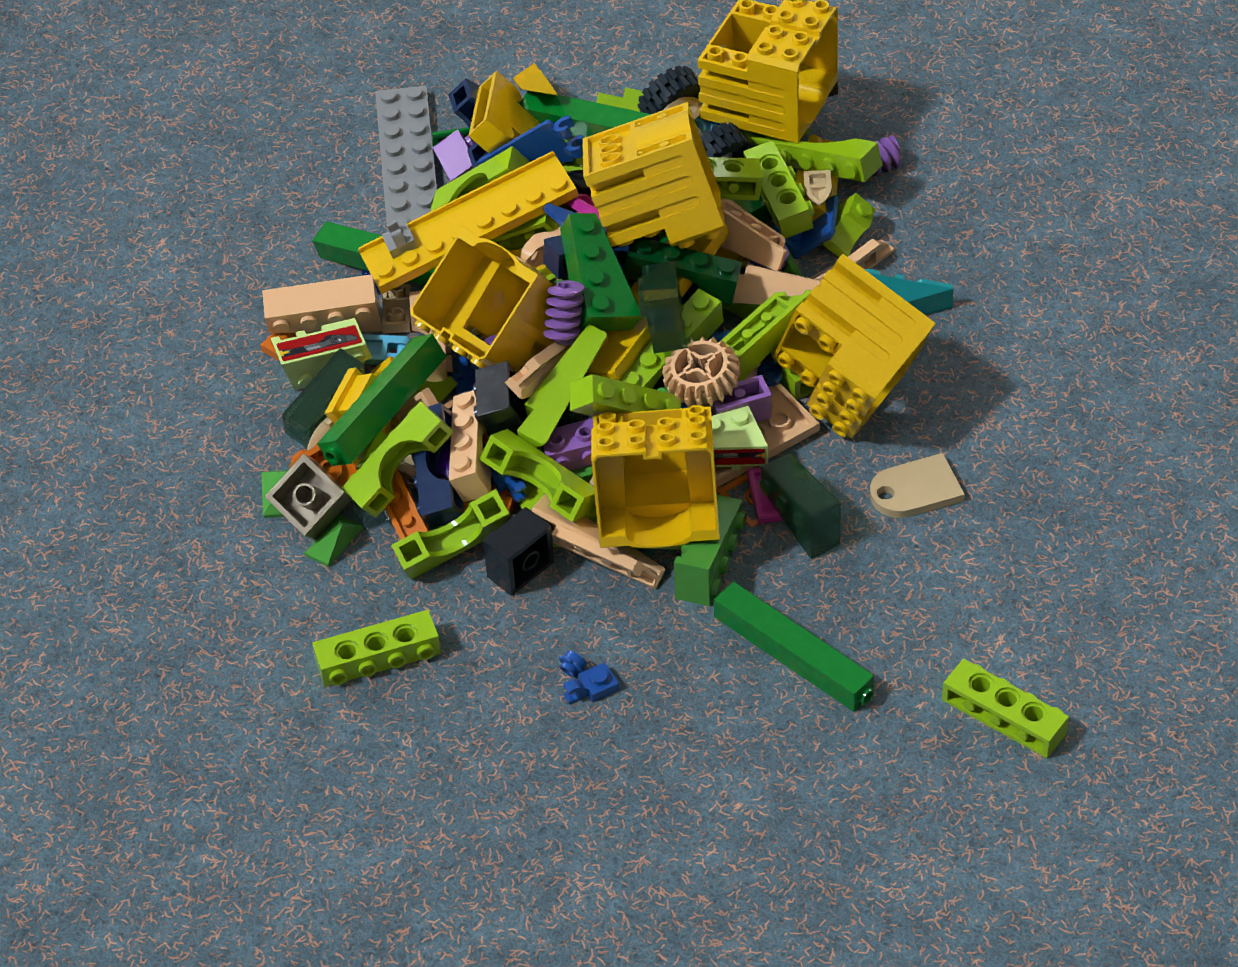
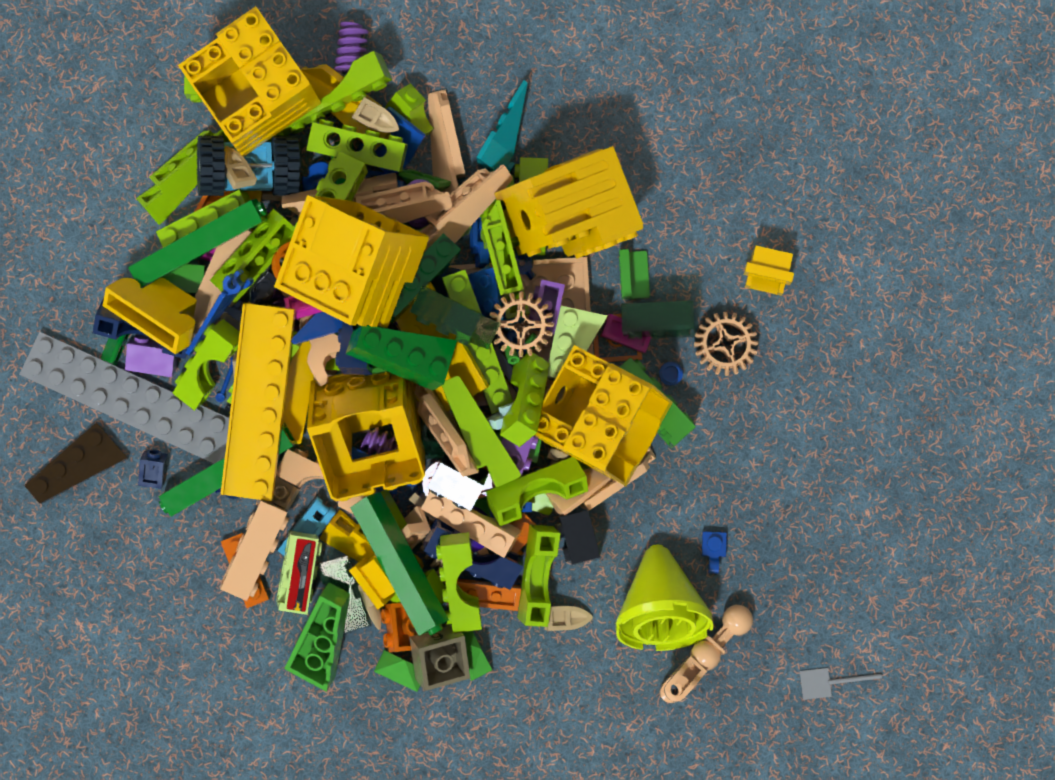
camera: 60 degrees left, 35 degrees up
(265, 393) = (320, 642): none -> bright green wedge
(326, 169) = (77, 463): none -> dark brown wing
(352, 213) = (152, 469): none -> dark blue bracket
(376, 648) = (582, 715): lime brick -> none
(398, 239) = (240, 462): light grey tile -> none
(425, 592) = (567, 618): none -> tan plate
(439, 718) = (706, 654): none -> light nougat piece
(488, 647) = (662, 606): none -> neon yellow cone
(511, 855) = (817, 683): none -> light grey piece
(533, 80) = (123, 260): yellow wedge -> none
(565, 312) = (424, 396): medium lavender piece -> none
(572, 663) = (690, 553): blue plate -> none
(754, 553) = (670, 373): none -> blue plate
(794, 647) = (770, 399): green brick -> none
(824, 587) = (706, 350): none -> light nougat gear
(836, 467) = (634, 274): none -> bright green panel
(916, 487) = (681, 225): tan tile -> none
(931, 570) = (768, 270): none -> yellow plate
(986, 697) = (873, 314): lime brick -> none

